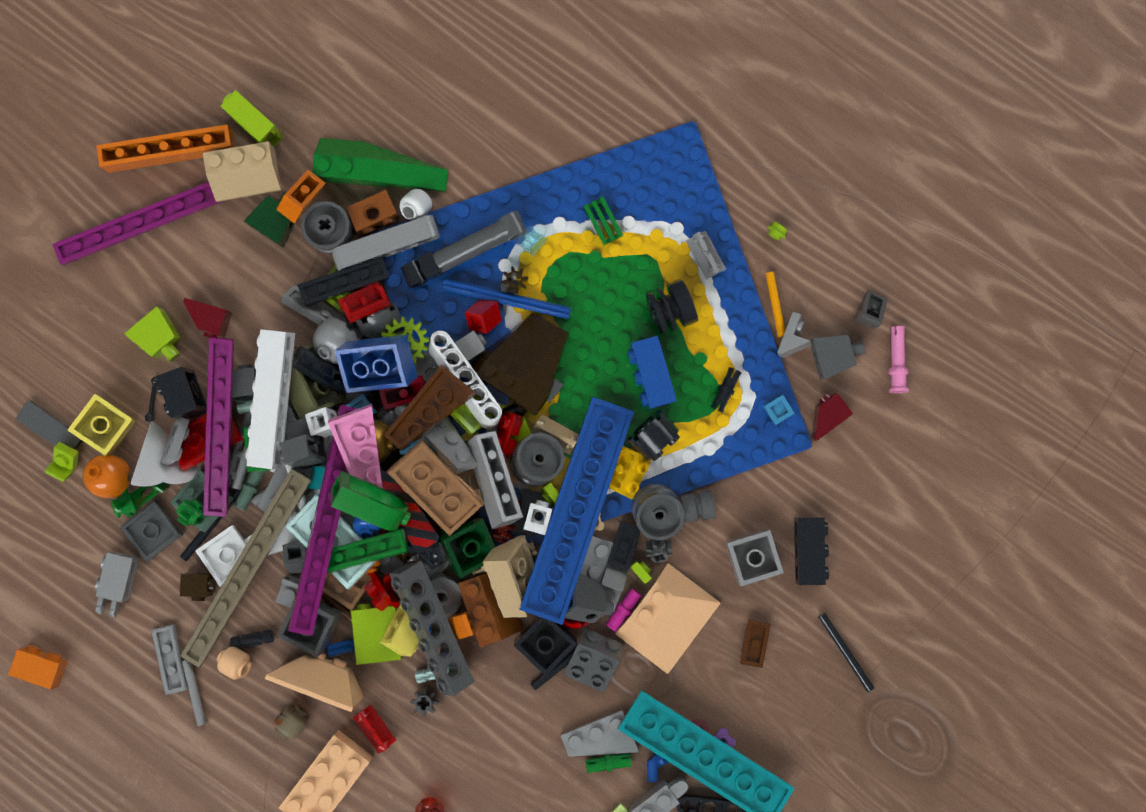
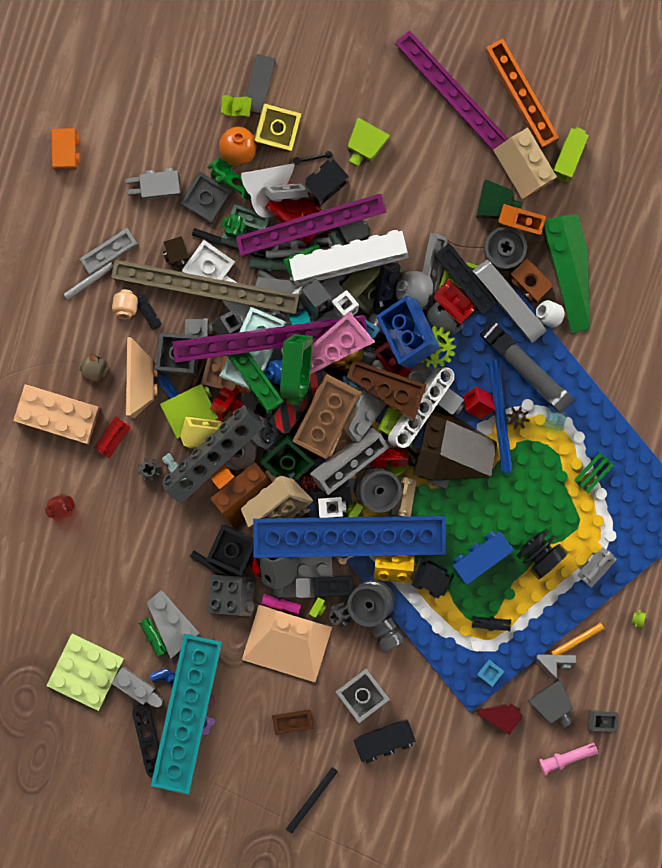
camera: 70 degrees right, 0 degrees up
(208, 318) = (395, 179): dark red slope -> none

